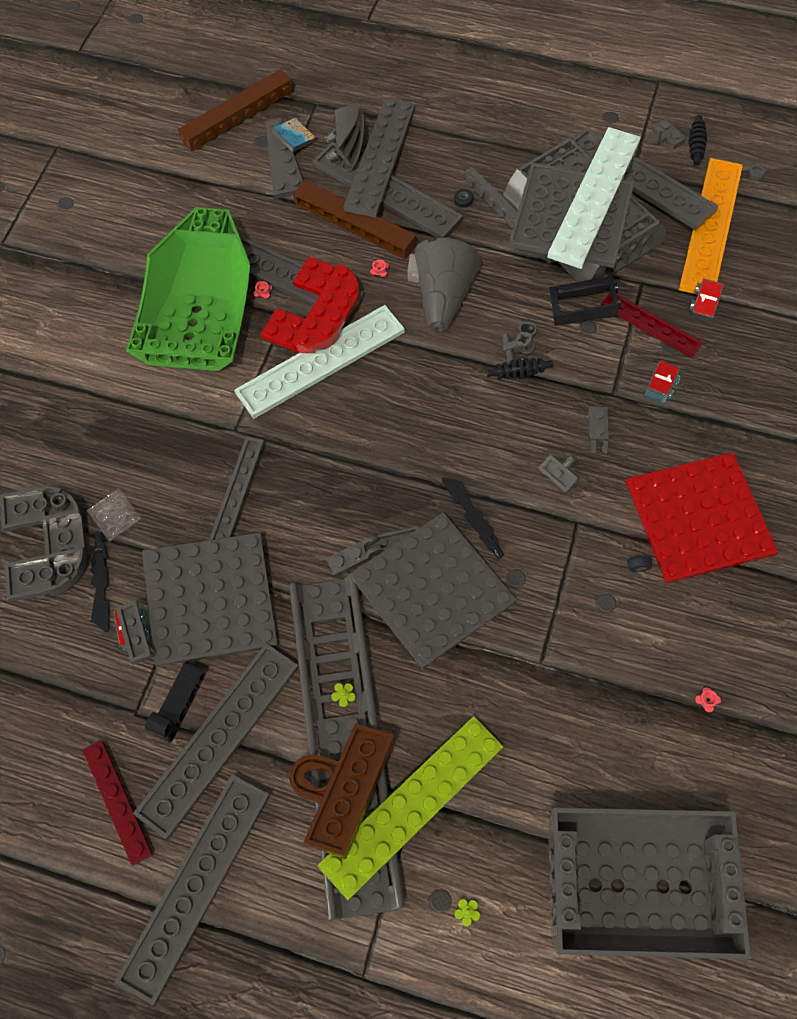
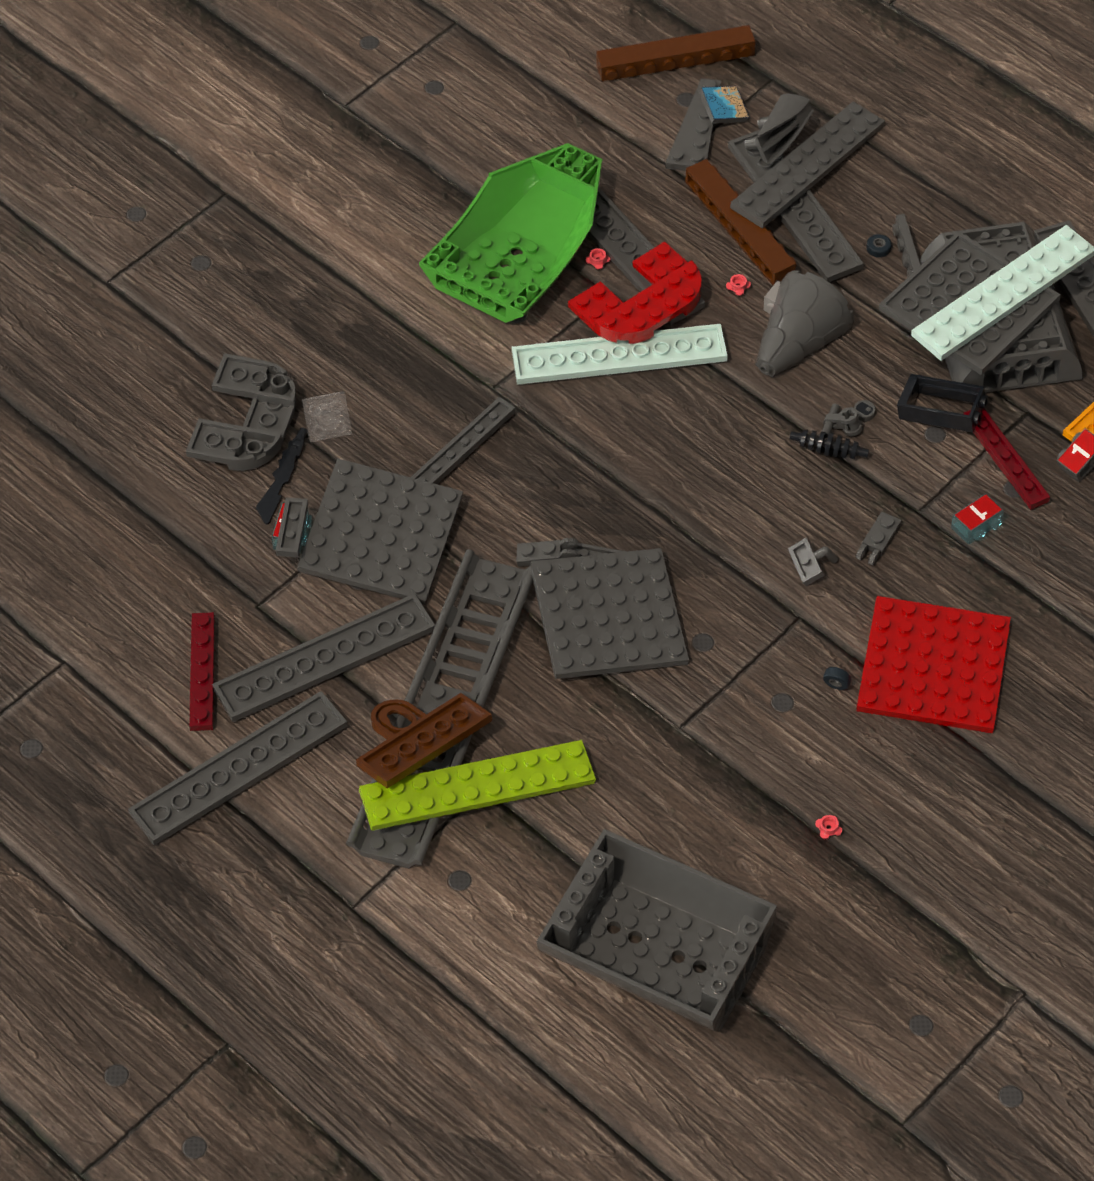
camera: 25 degrees right, 10 degrees down
(177, 703) = (298, 613): black beam -> none
(343, 694) = (464, 667): lime plant -> none
(466, 912) = (478, 898): lime plant -> none
(473, 516) = (693, 569): black sword -> none

